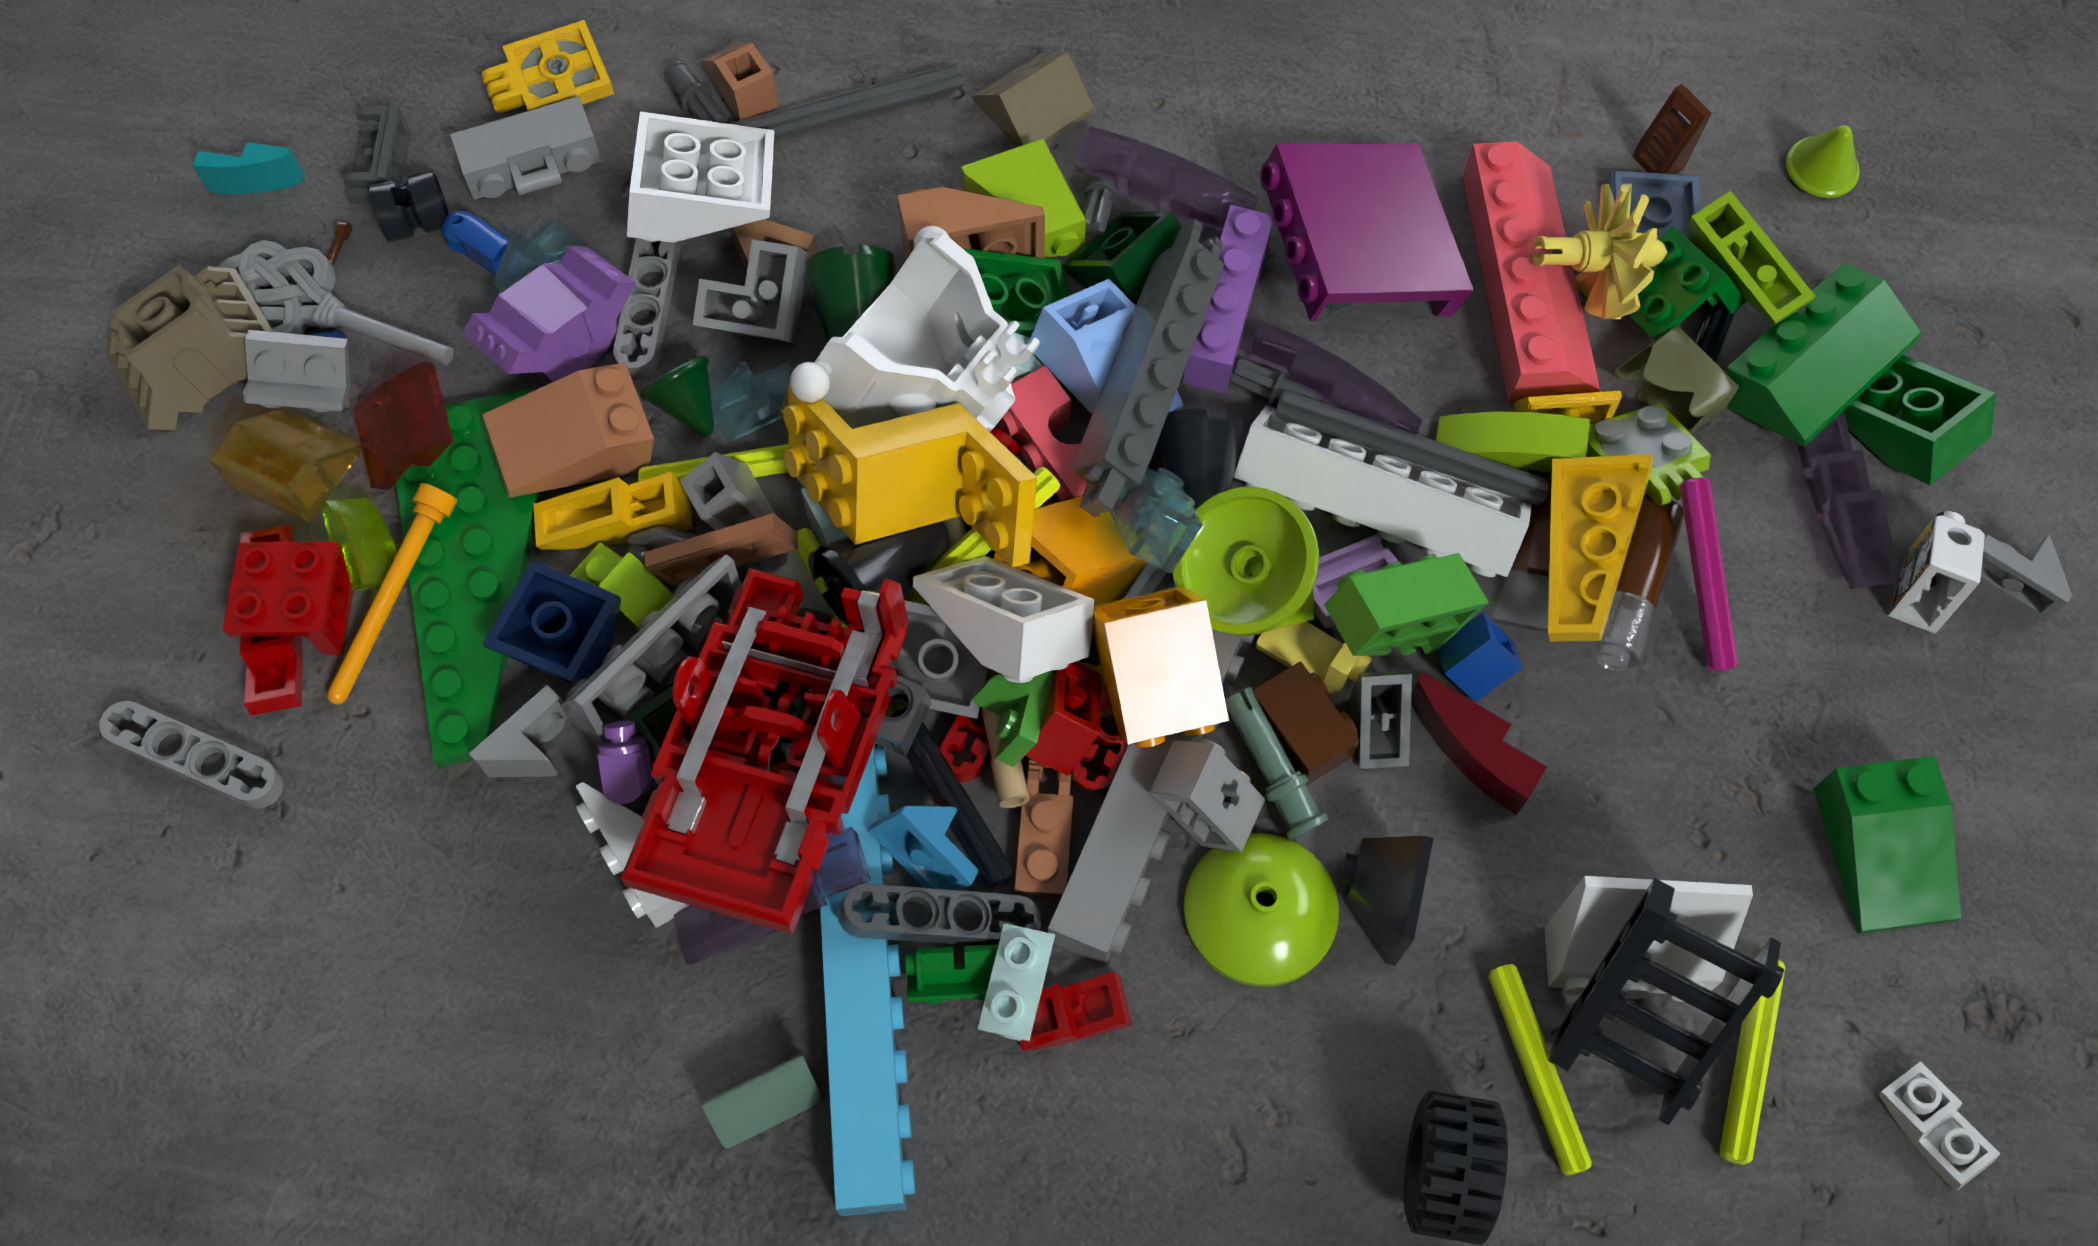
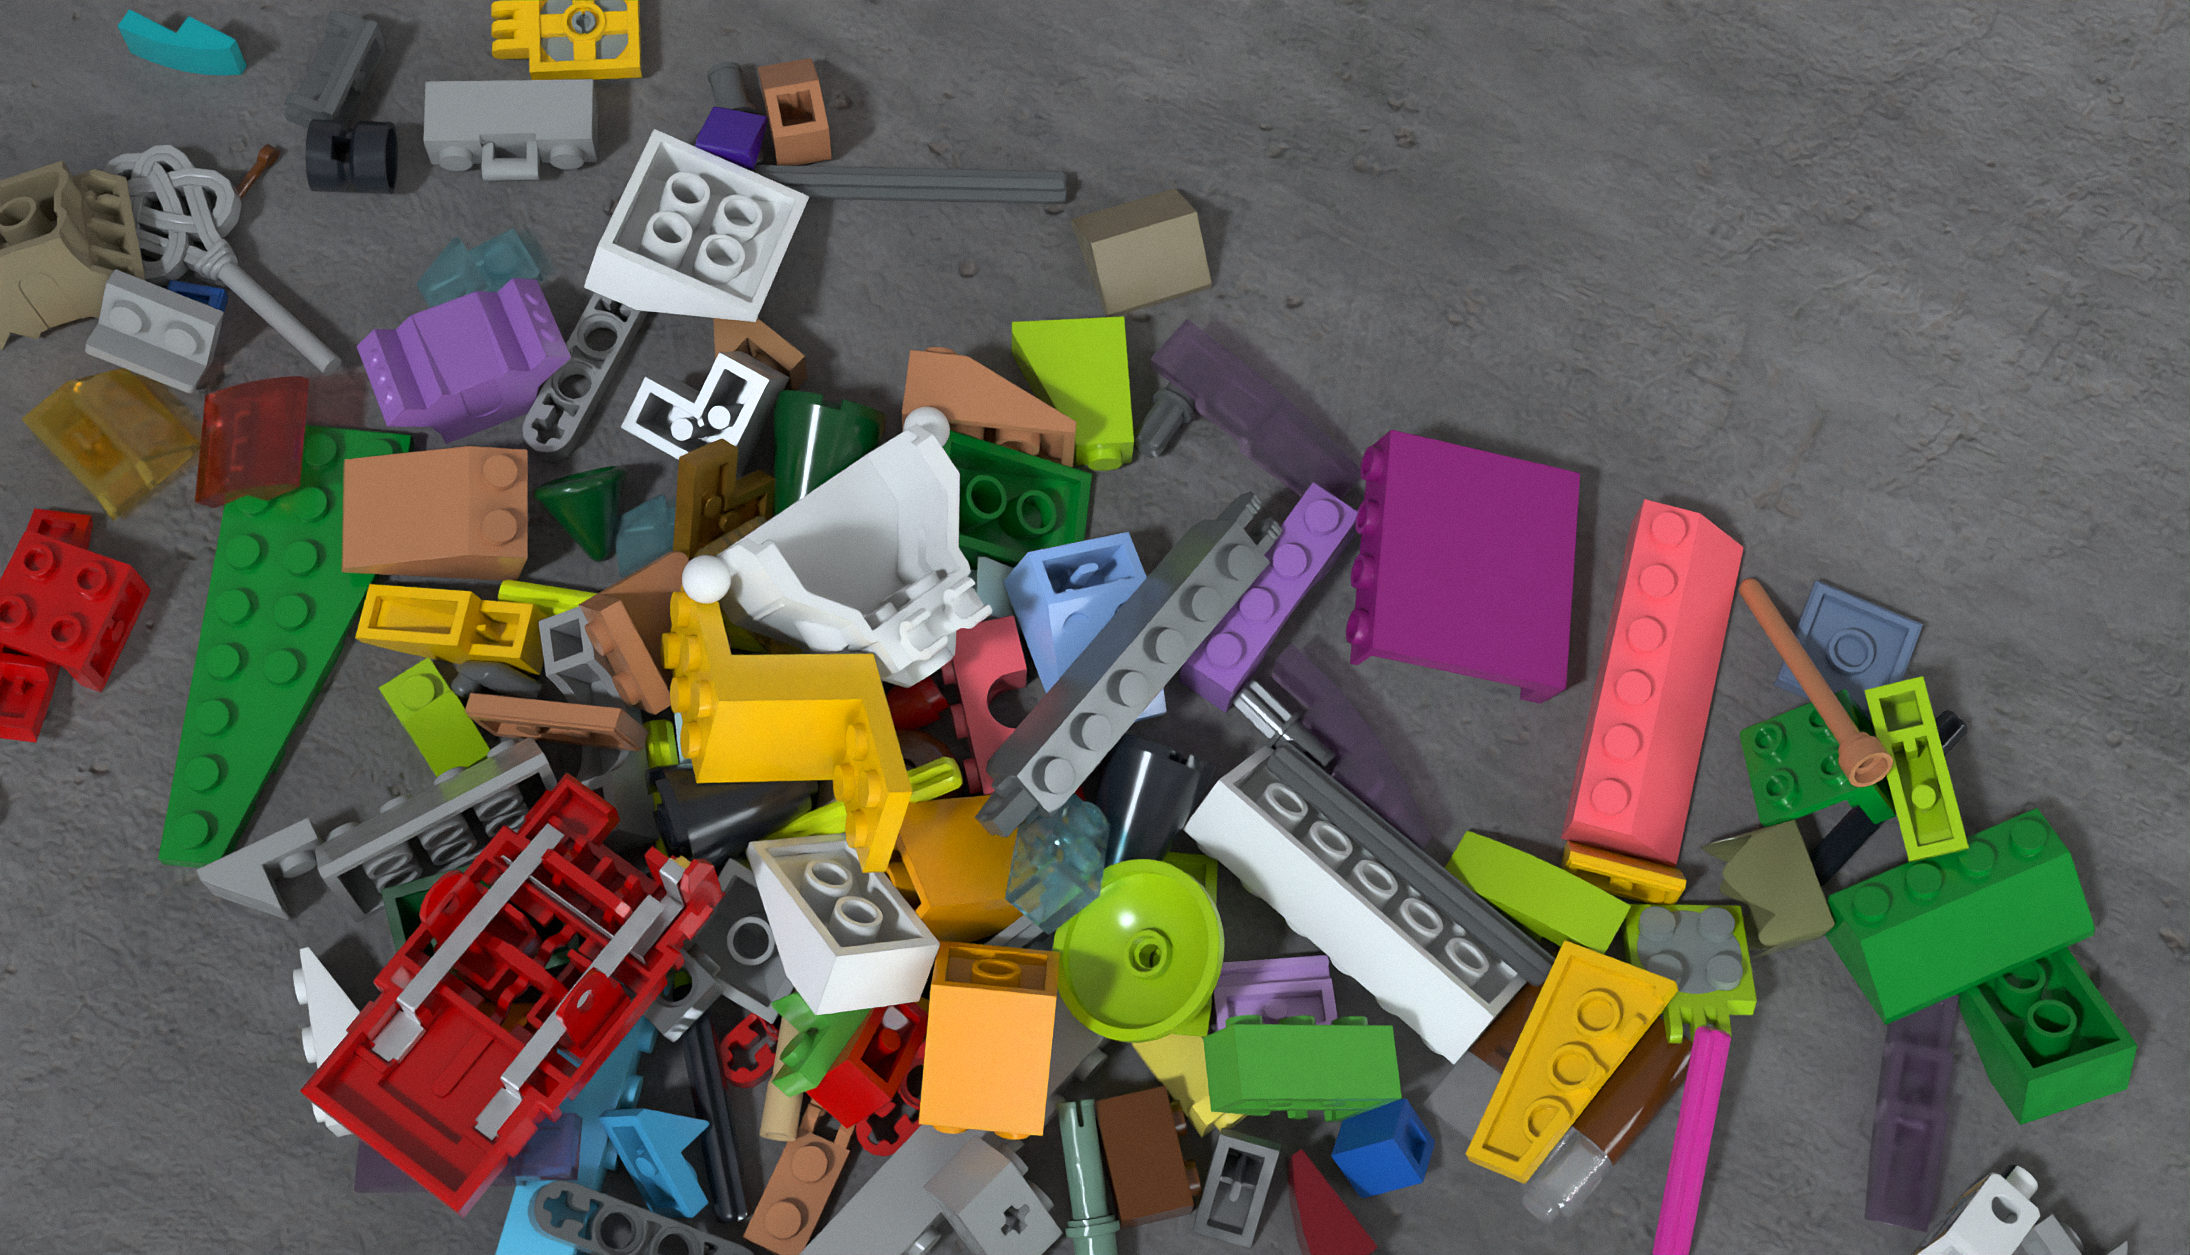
camera: 15 degrees right, 5 degrees up
(363, 538) = (167, 568): clear neon green slope -> none
(430, 508) = (248, 558): light orange piece -> none
(475, 239) = (415, 221): blue piece -> none
(556, 624) = (341, 748): dark blue slope -> none
(624, 763) = (358, 943): medium lavender arm -> none
(701, 103) = (733, 136): none -> dark purple slope
(756, 458) = (628, 629): none -> nougat bracket
(782, 345) = (712, 499): none -> pearl gold plate
(1125, 251) = (1167, 496): dark green slope -> none
(1609, 256) = (1742, 703): light yellow piece -> none
(1670, 137) = (1902, 565): reddish brown slope -> none
(1713, 255) = (1860, 755): none -> nougat piece
(1824, 163) = (2089, 661): lime hat -> none

